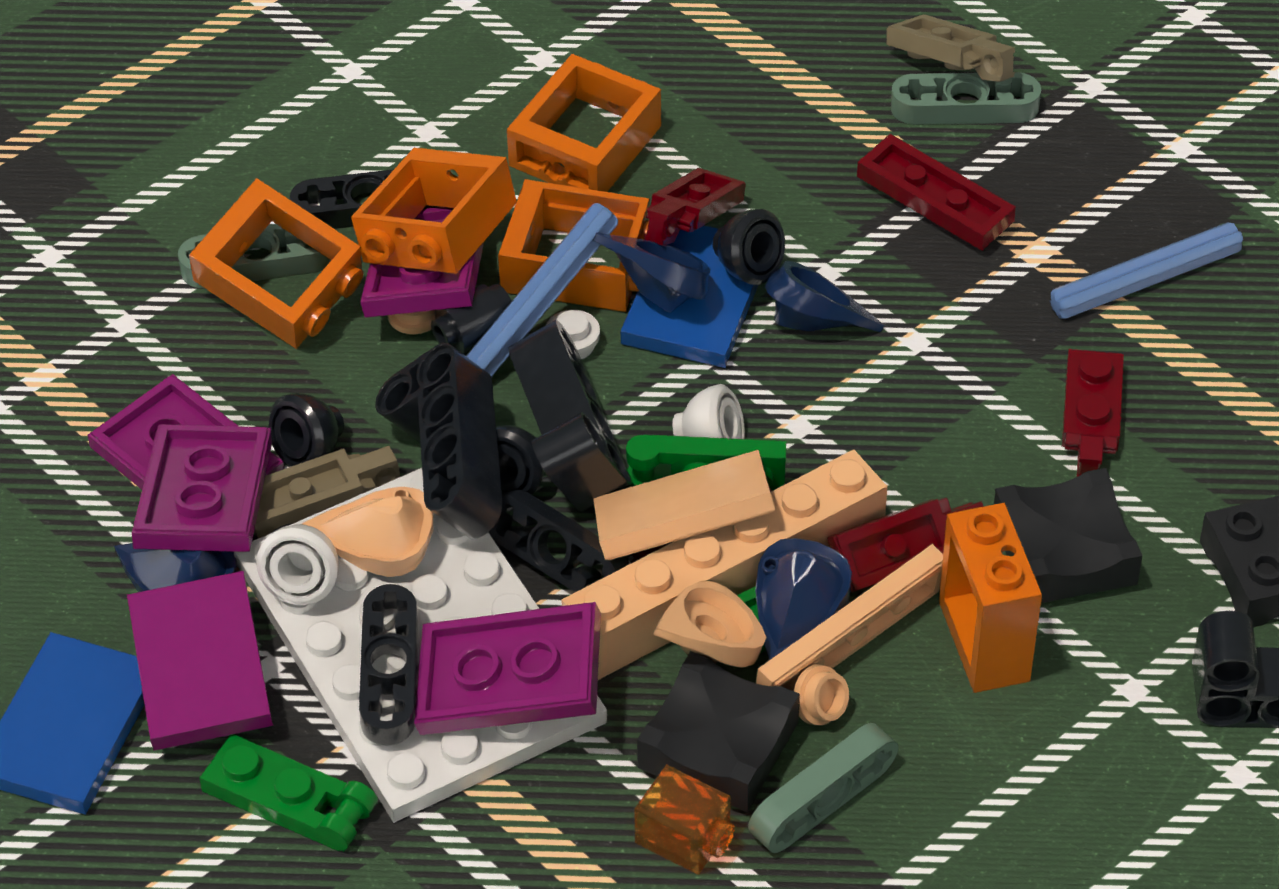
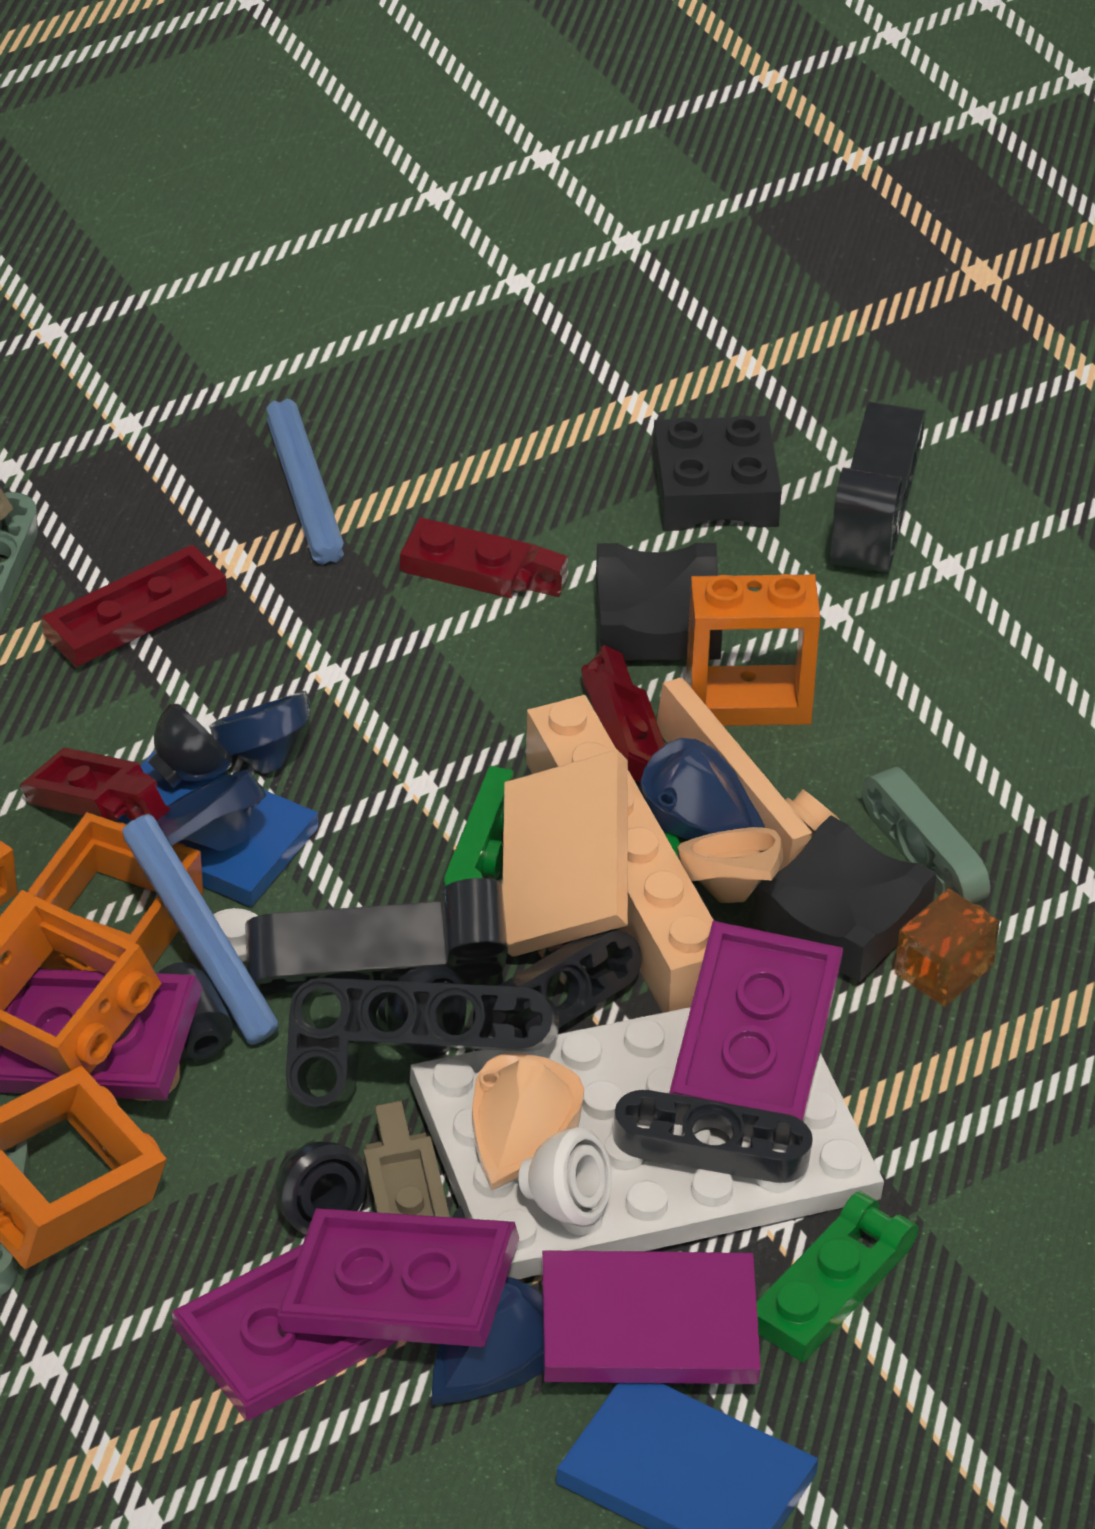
camera: 80 degrees left, 5 degrees down
(711, 414) = (420, 836): white brick -> none

